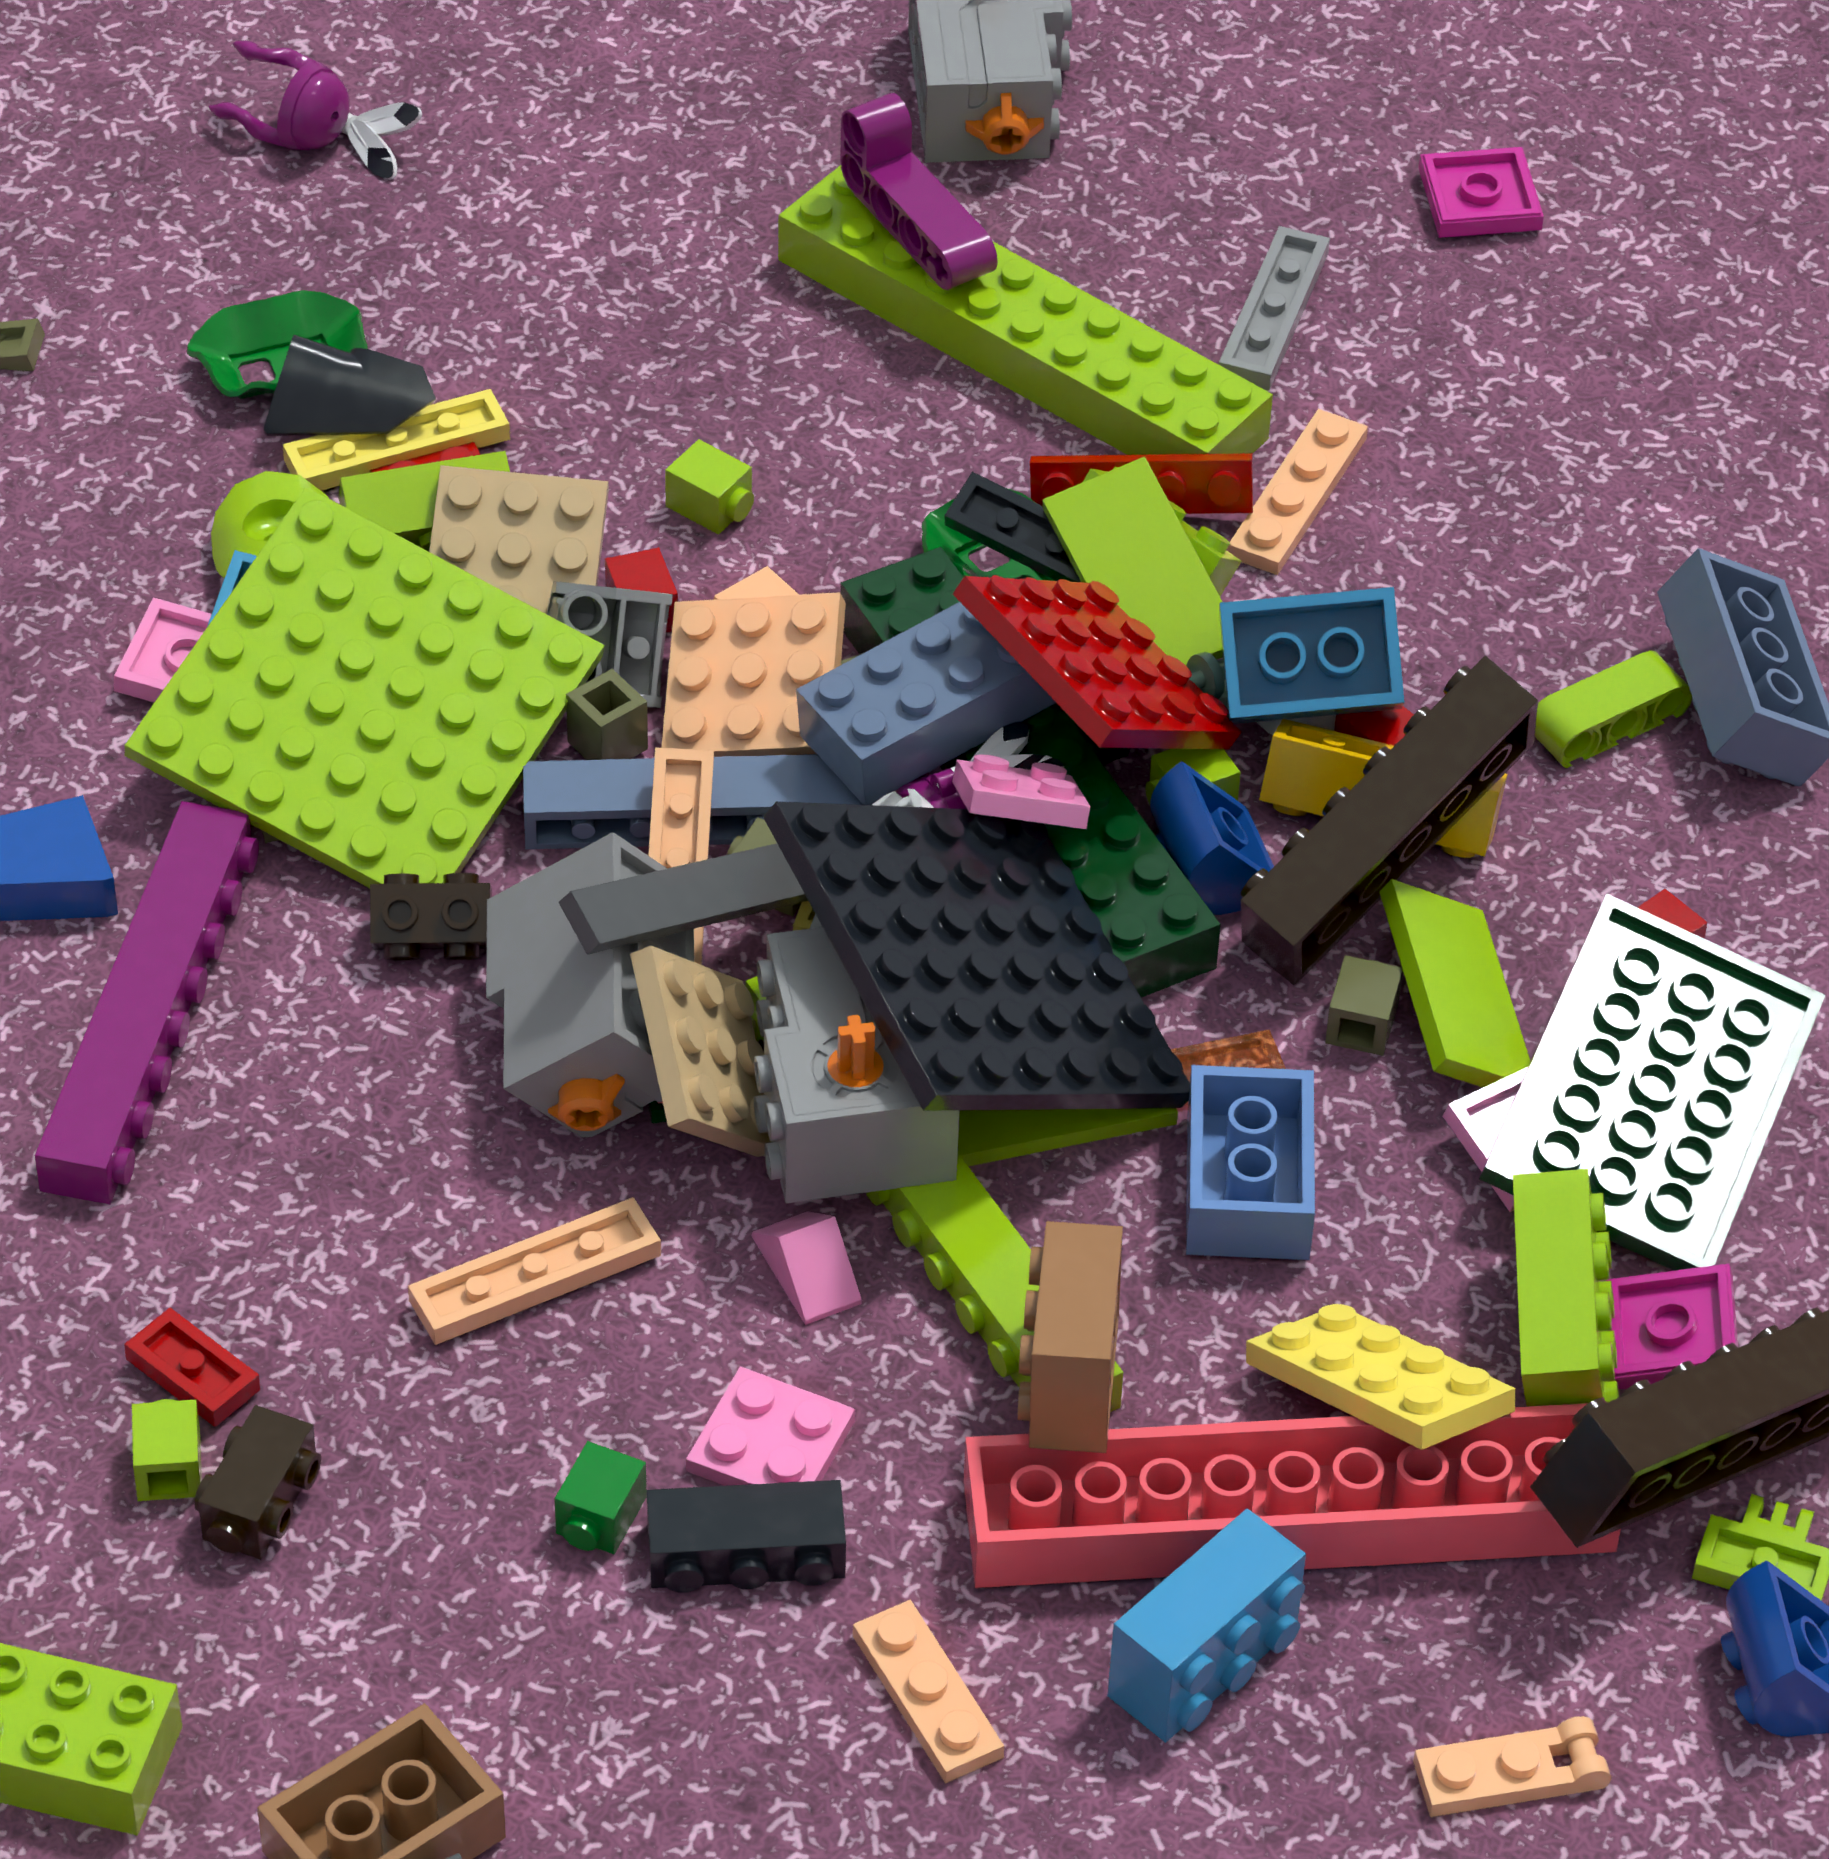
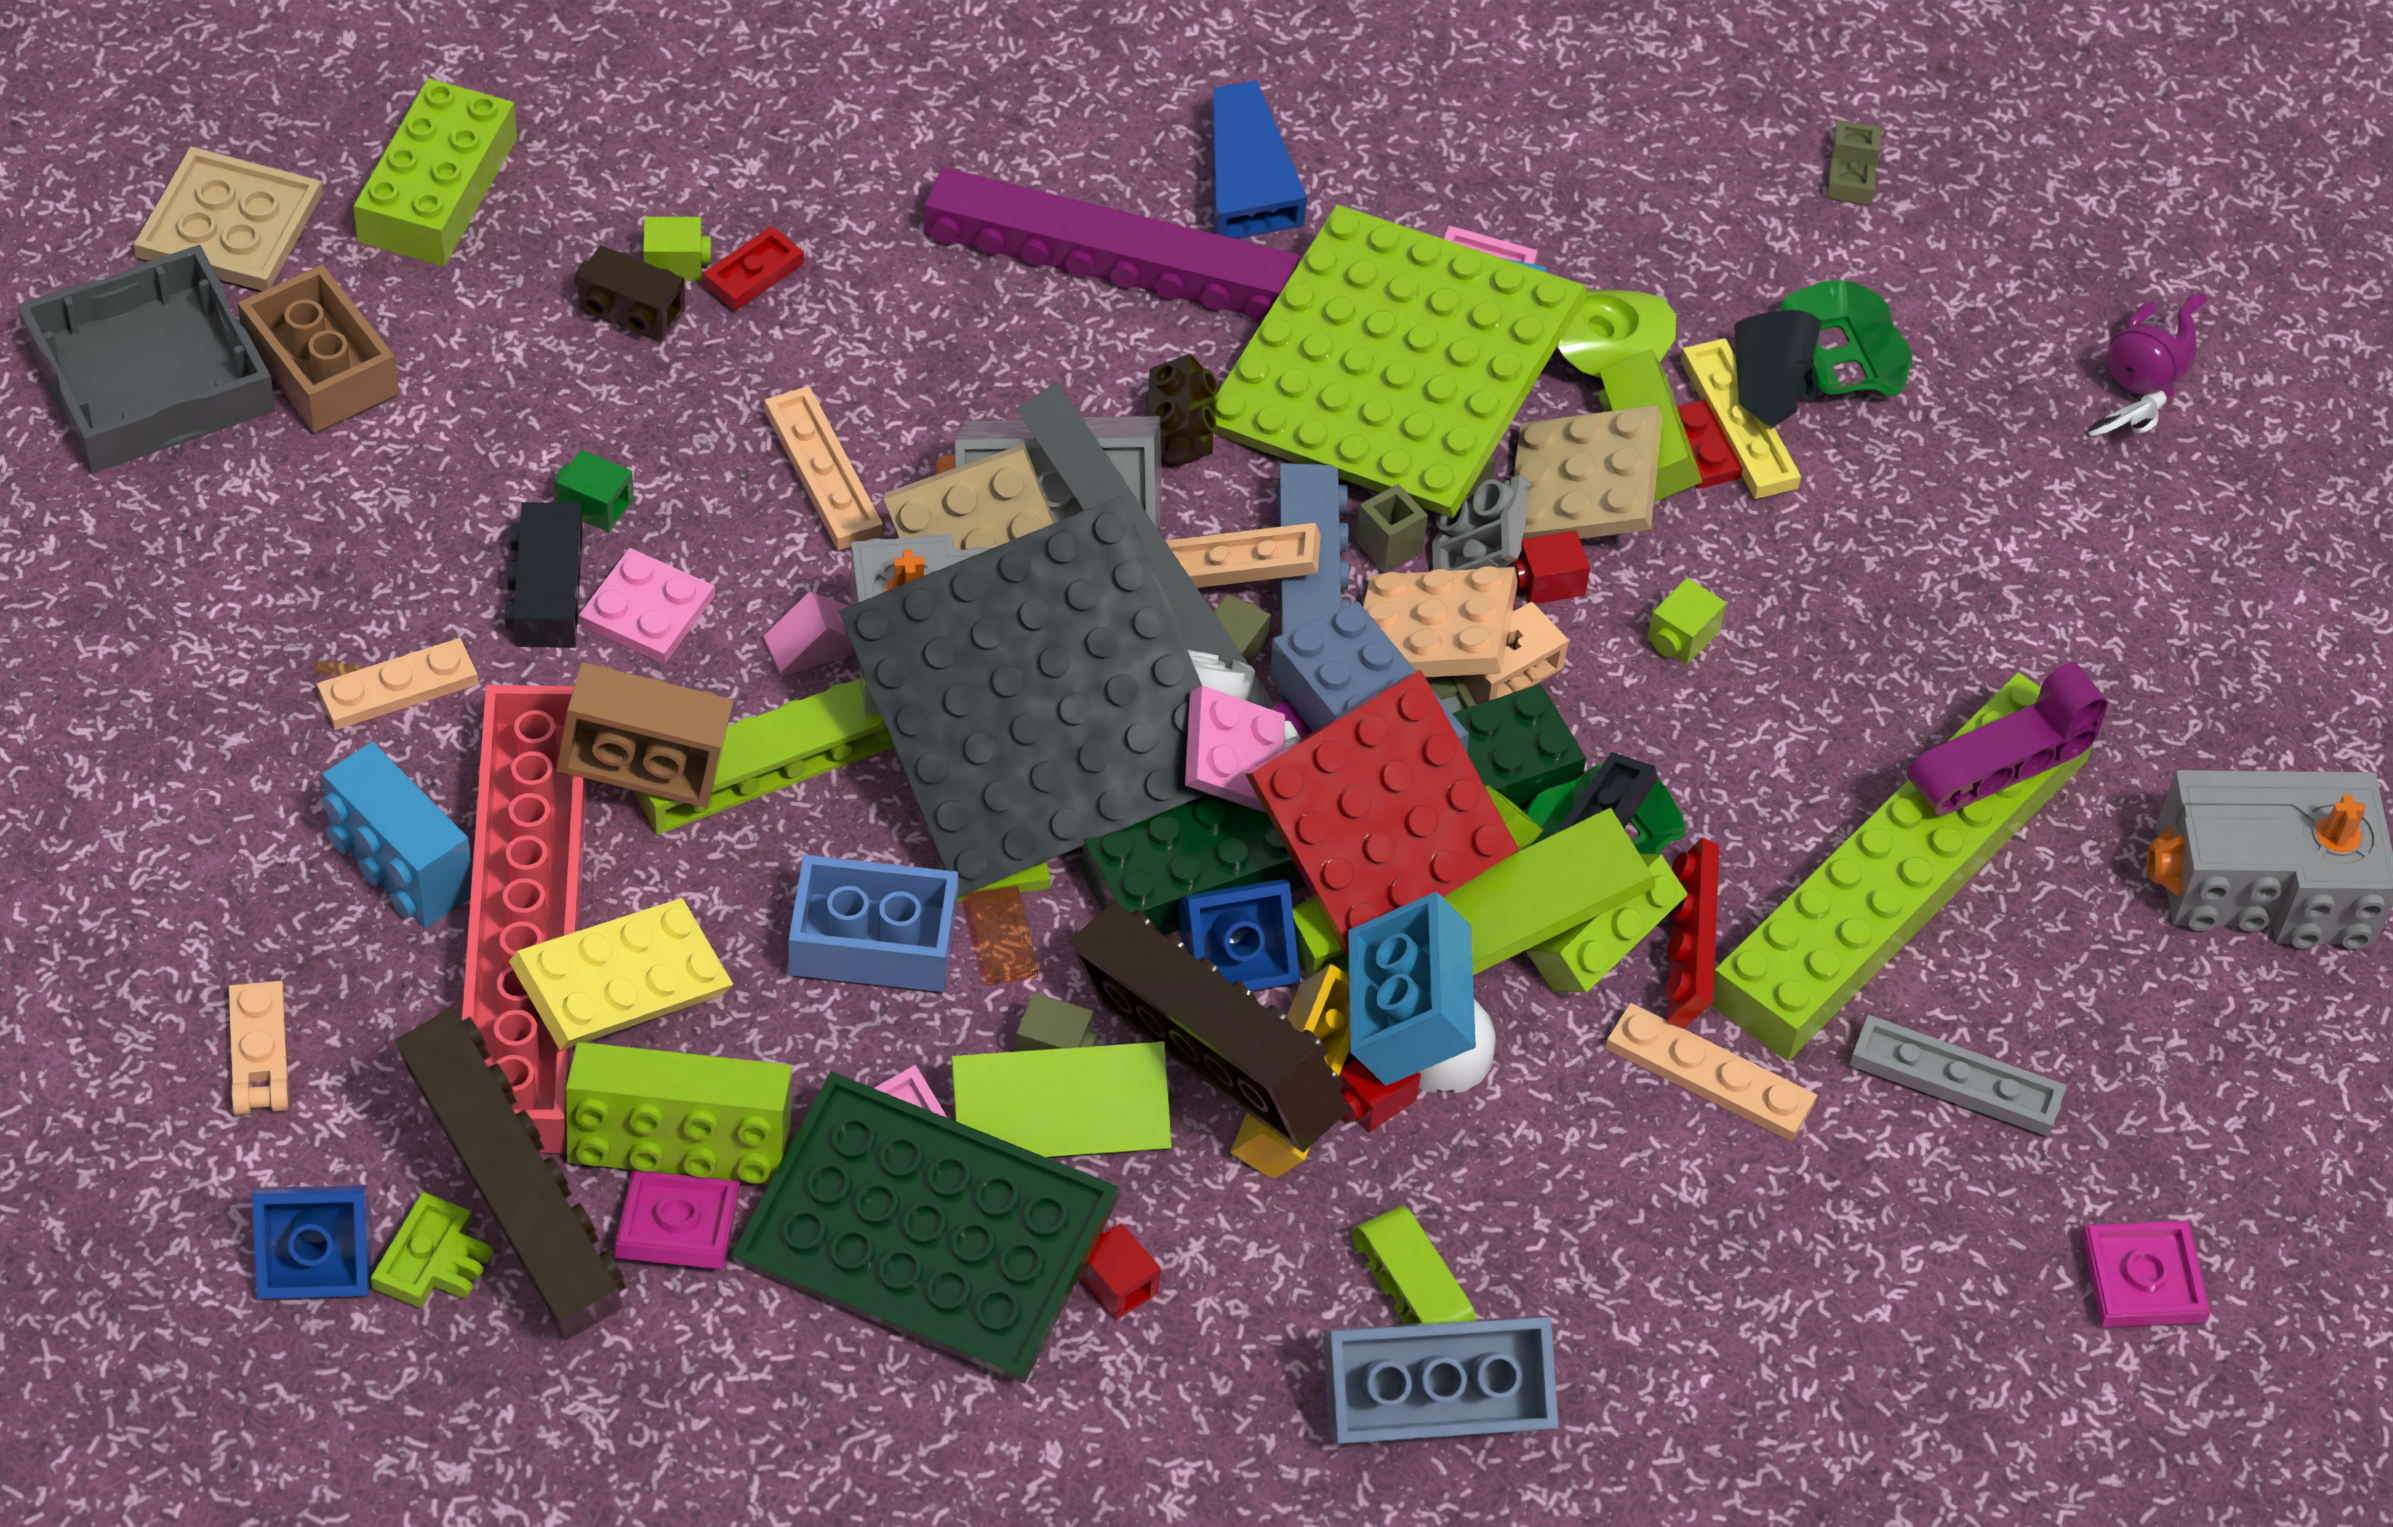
camera: 90 degrees right, 5 degrees up
(906, 1753) = (335, 668): none -> clear yellow piece

